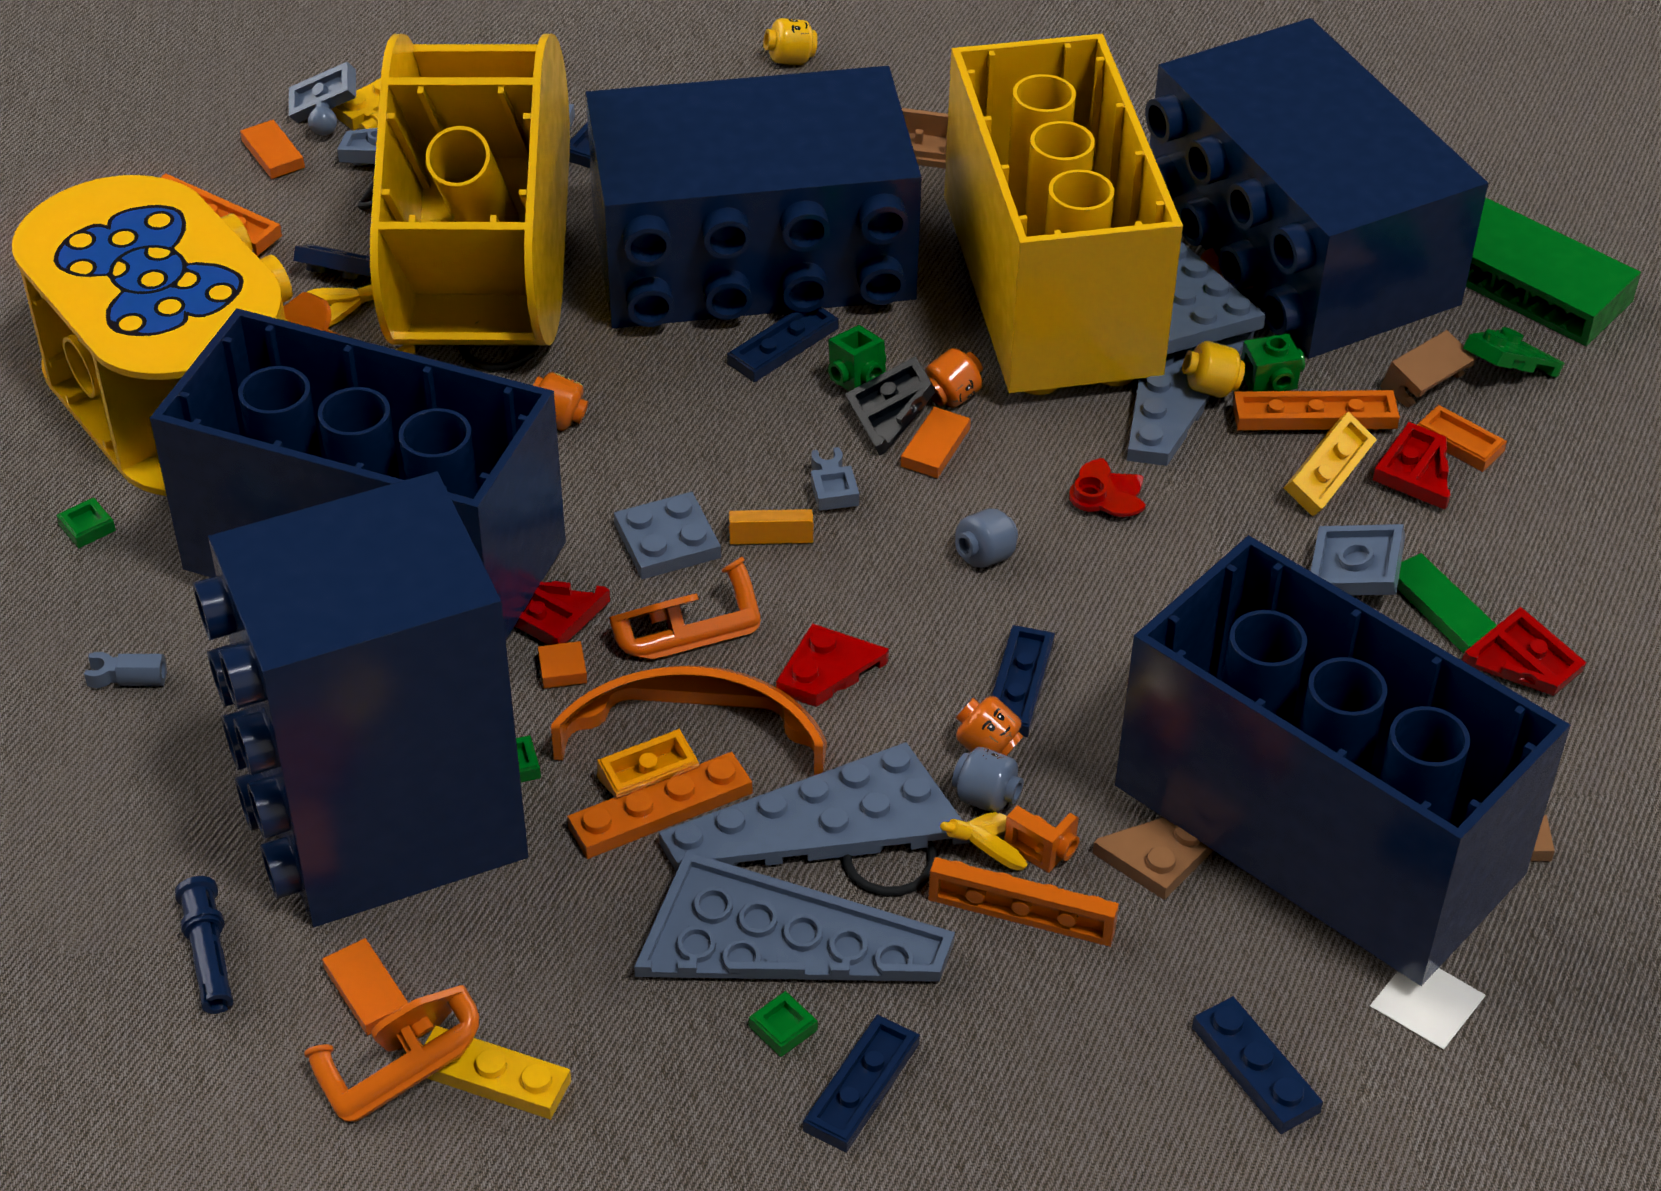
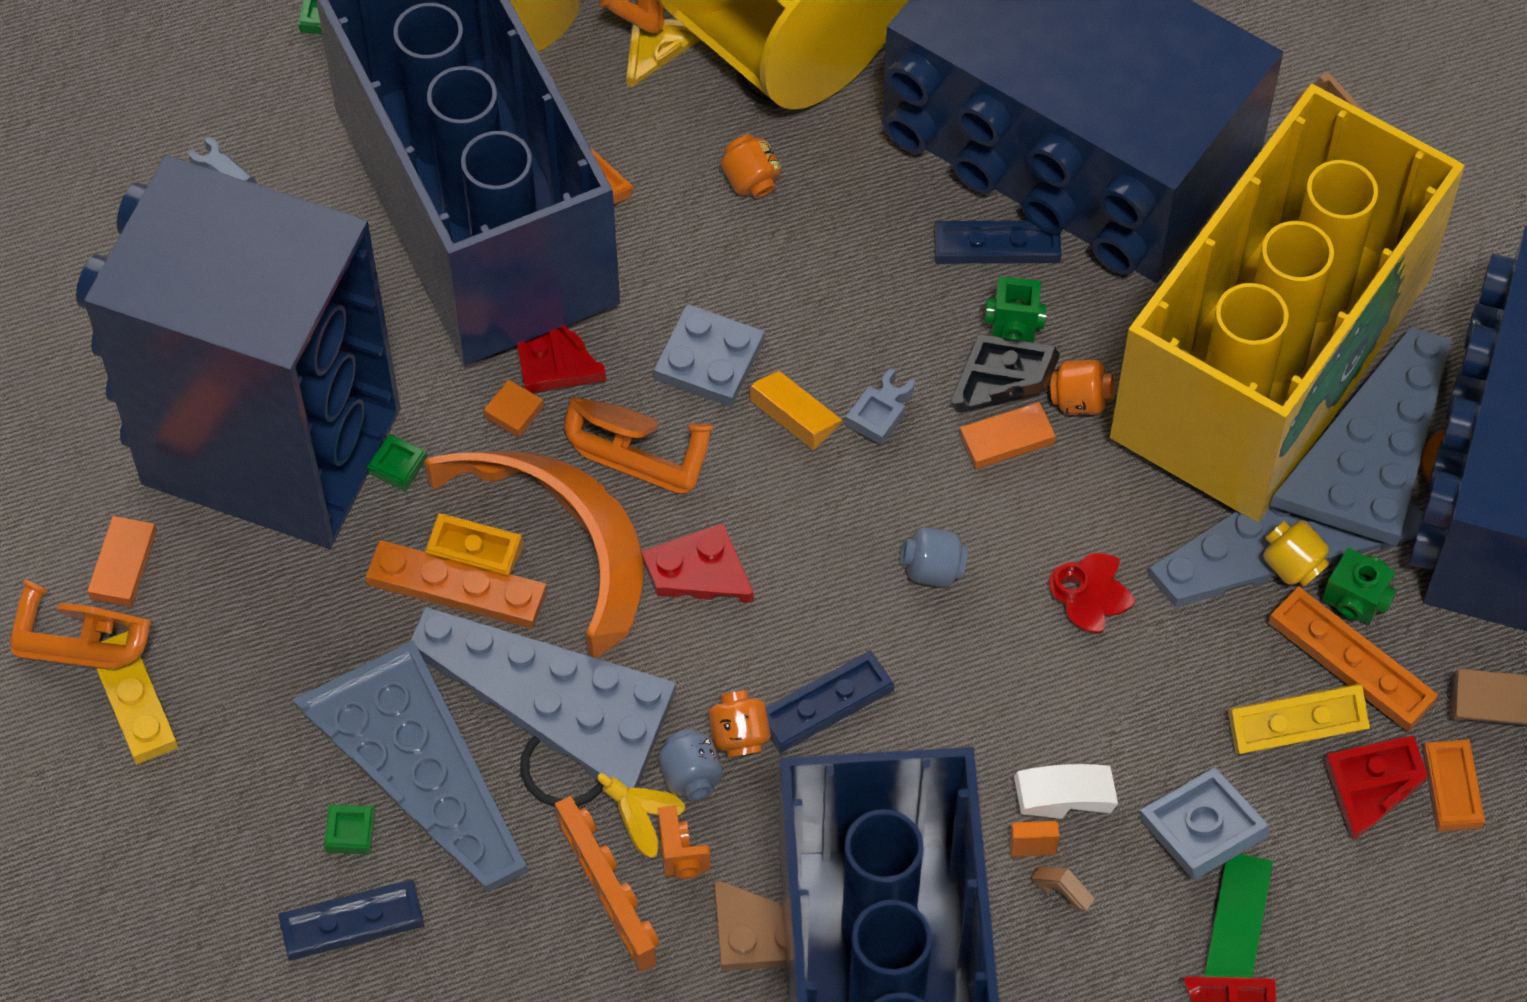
camera: 45 degrees right, 15 degrees up
(203, 926) = (66, 425): dark blue pin -> none

